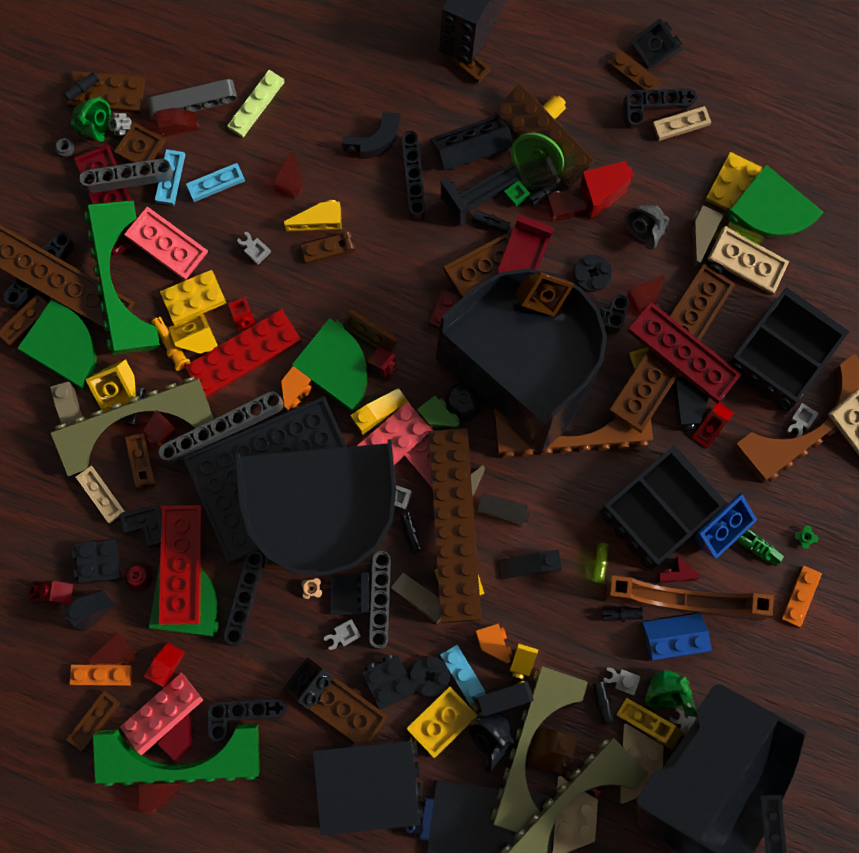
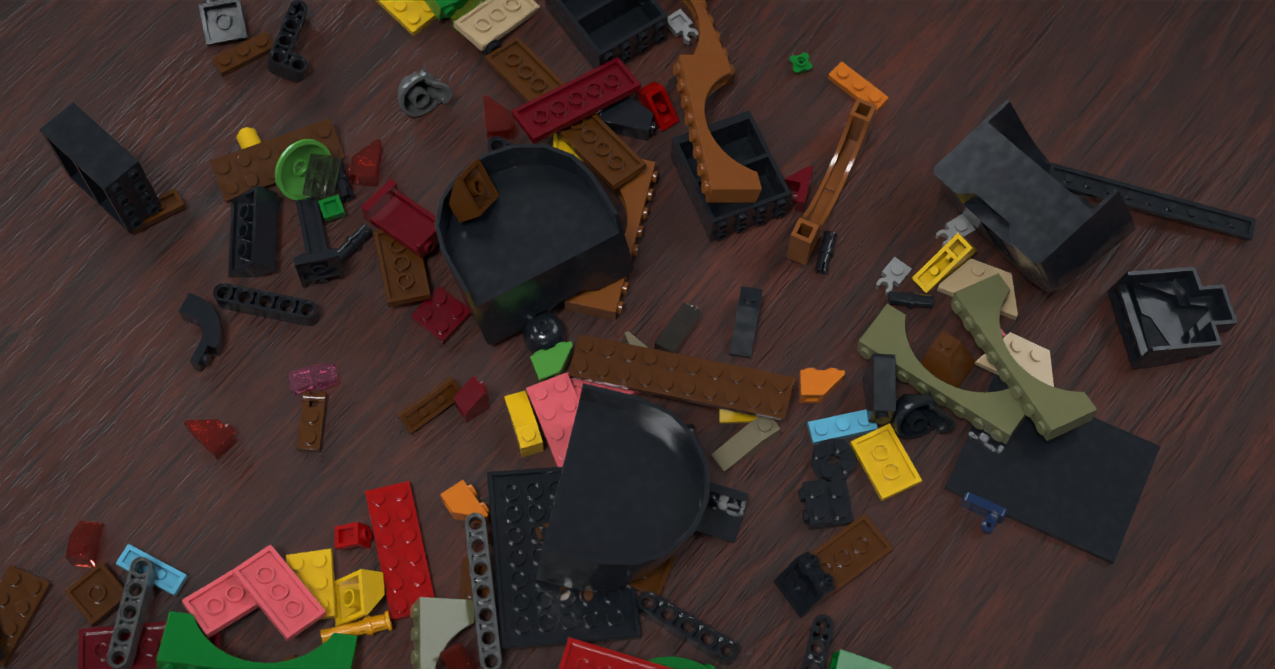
camera: 75 degrees left, 10 degrees down
(92, 118) = (37, 639): green head -> none
(119, 123) = (59, 608): light grey gear -> none
(174, 274) = (279, 592): none -> coral plate
(194, 98) = (64, 515): dark grey beam -> none
(215, 182) = (180, 520): medium azure plate -> none
(255, 103) = (102, 448): yellowish green plate -> none
(255, 249) = (282, 499): light grey plate -> none
(306, 584) = (698, 548): light nougat plate -> none
(319, 217) = (274, 413): yellow slope -> none
(335, 365) = (455, 450): green brick -> none
(346, 634) = (761, 533): light grey plate -> none
(363, 234) = (312, 376): none -> clear pink slope
(367, 785) = (934, 552): black container -> none
(377, 590) = (749, 483): dark grey beam -> none
(523, 661) = (848, 355): yellow slope -> none
(596, 263) = (447, 154): black plate -> none
(600, 563) = (765, 256): clear neon green pin -> none
(605, 186) = (362, 118): red slope -> none
(646, 498) = (720, 175): none -> dark orange arch
(670, 691) = (918, 231): green head -> none
(676, 637) = (865, 210): blue slope -> none
(681, 123) = (321, 28): tan plate -> none
(703, 230) = (451, 47): dark tan slope -> none
(726, 527) = (771, 125): blue slope -> none
(760, 547) = (796, 106): green hinge -> none

